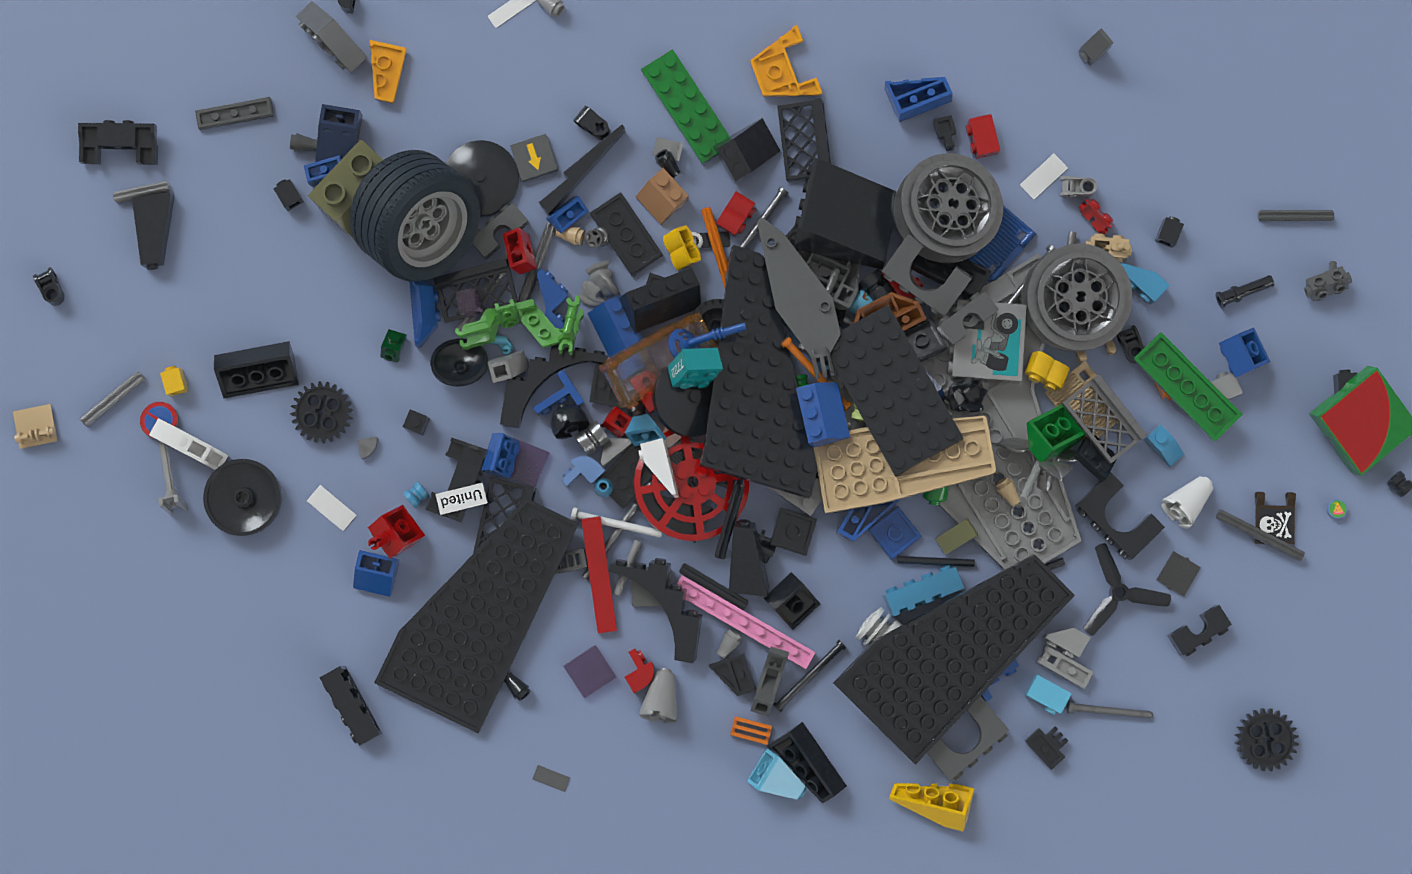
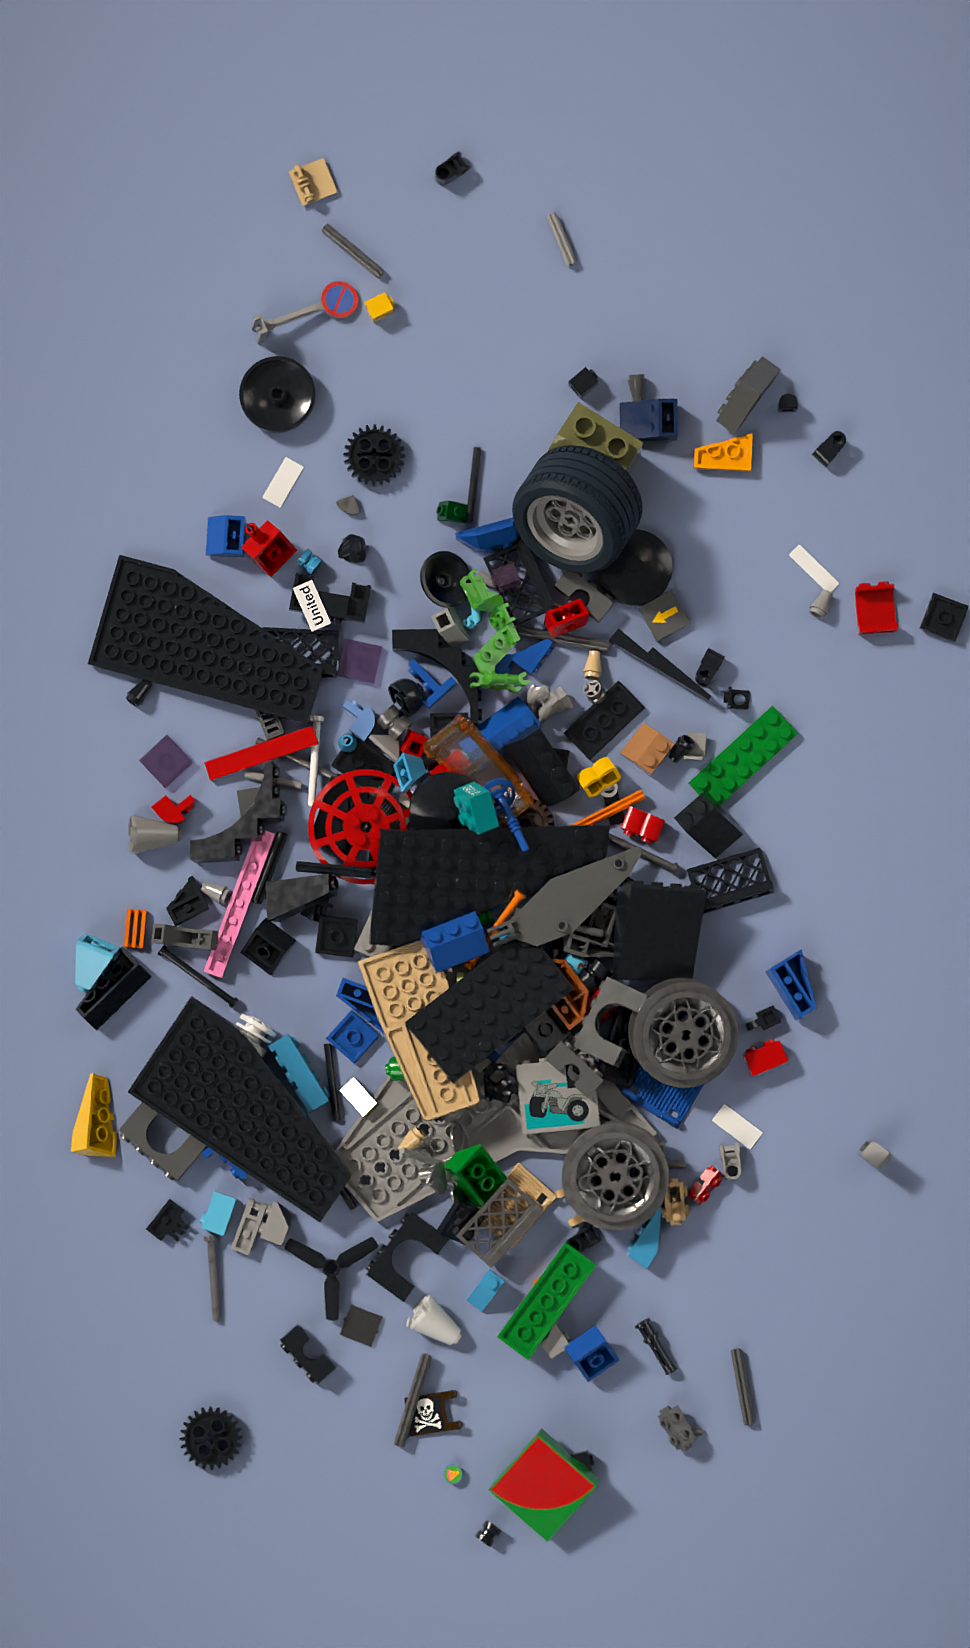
camera: 80 degrees right, 0 degrees up
(118, 136) = (611, 207): black bracket -> none
(152, 225) = (527, 257): black slope -> none
(188, 444) = (319, 332): white slope -> none
(234, 113) = (655, 314): dark grey tile -> none
(256, 369) = (405, 383): black slope -> none
(318, 170) = (613, 411): blue slope -> none
(351, 705) = (94, 536): black wedge -> none
(368, 320) = (473, 484): none -> black bar
(411, 449) = (352, 547): none -> black hair
(416, 422) = (379, 548): black brick -> none
(501, 455) = (361, 636): blue slope -> none
(551, 778) = (56, 742): dark grey sticker -> none
(567, 214) = (612, 658): blue slope -> none
(624, 108) = (729, 699): none -> black bracket
(657, 458) = (380, 788): white slope -> none
(775, 71) = (793, 839): light orange wing -> none
(1047, 371) = (538, 1159): yellow brick -> none
(1169, 231) = (702, 1261): black brick -> none

